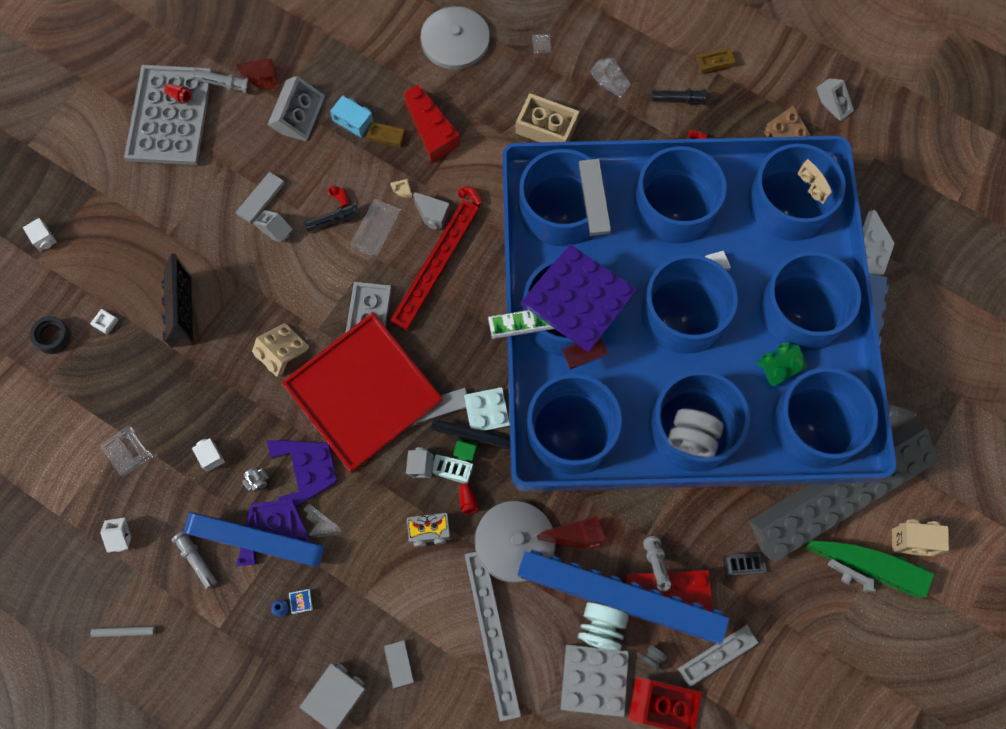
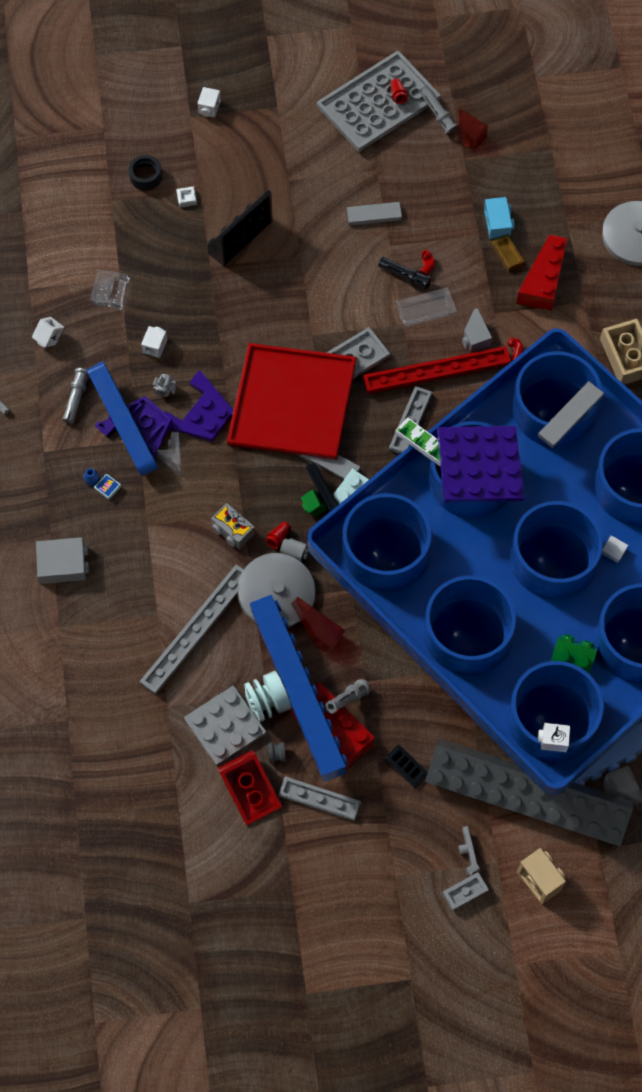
camera: 50 degrees right, 5 degrees down
(273, 225) = (359, 239): light grey slope -> none
(278, 348) = (273, 320): tan bracket -> none
(296, 109) = (466, 177): light grey slope -> none
(398, 664) = (121, 585): light grey tile -> none
(402, 188) = (475, 299): tan tile -> none
(419, 463) = (274, 481): light grey brick -> none
(459, 319) = (415, 411): none -> light grey tile
(467, 473) = (296, 520): light aqua slope -> none
(491, 497) = (295, 549): none -> light grey brick
(577, 356) = (451, 510): clear red tile -> none
(695, 433) = (446, 615): light grey wheel -> none
(863, 438) = (554, 737): none -> white brick
(880, 566) = (493, 862): green slope -> none
(883, 606) = (465, 891): none -> light grey plate

